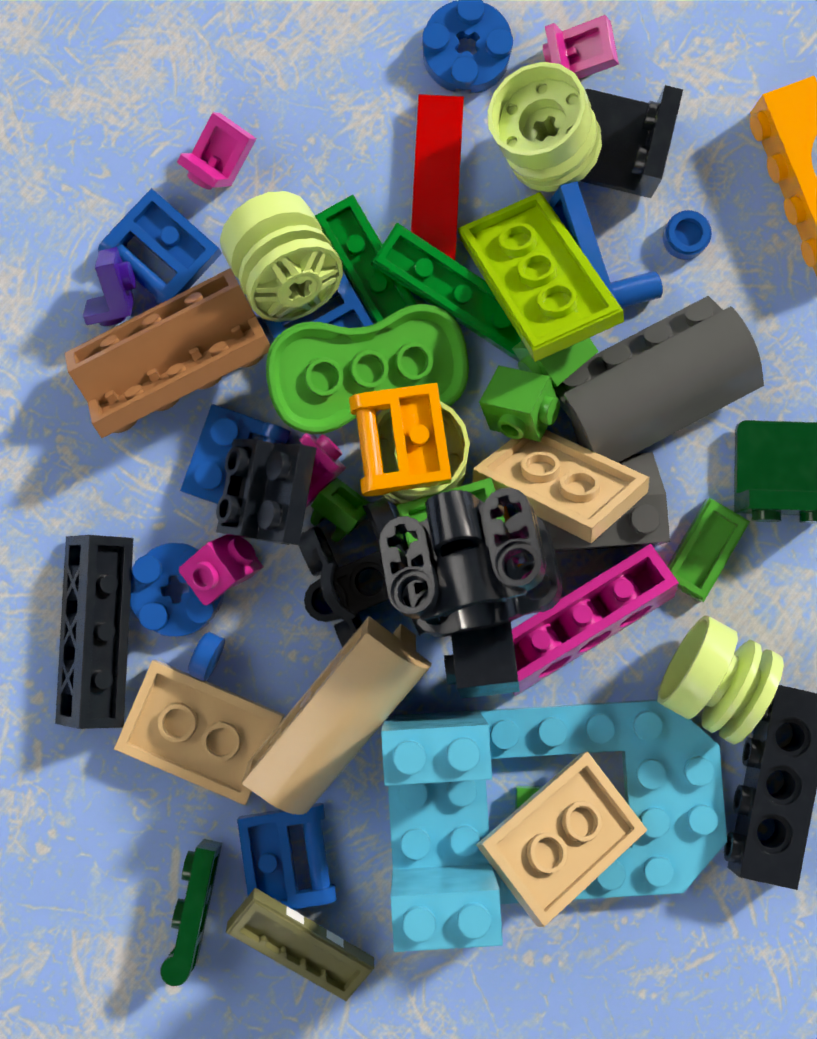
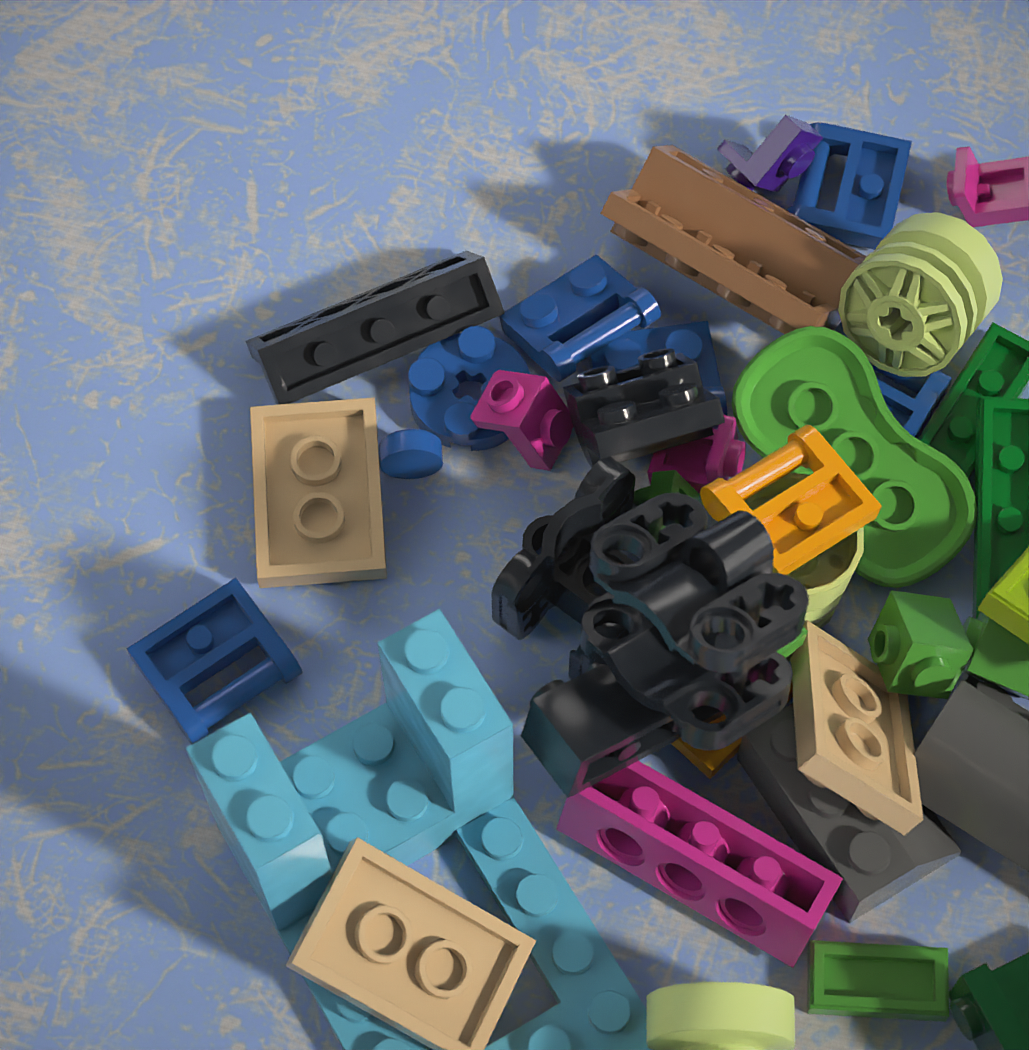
camera: 60 degrees right, 20 degrees down
(152, 490) = (577, 316): none -> blue plate
(192, 912) = (99, 585): dark green plate -> none
(300, 944) = (119, 720): olive plate -> none
(335, 717) = (363, 587): tan brick -> none

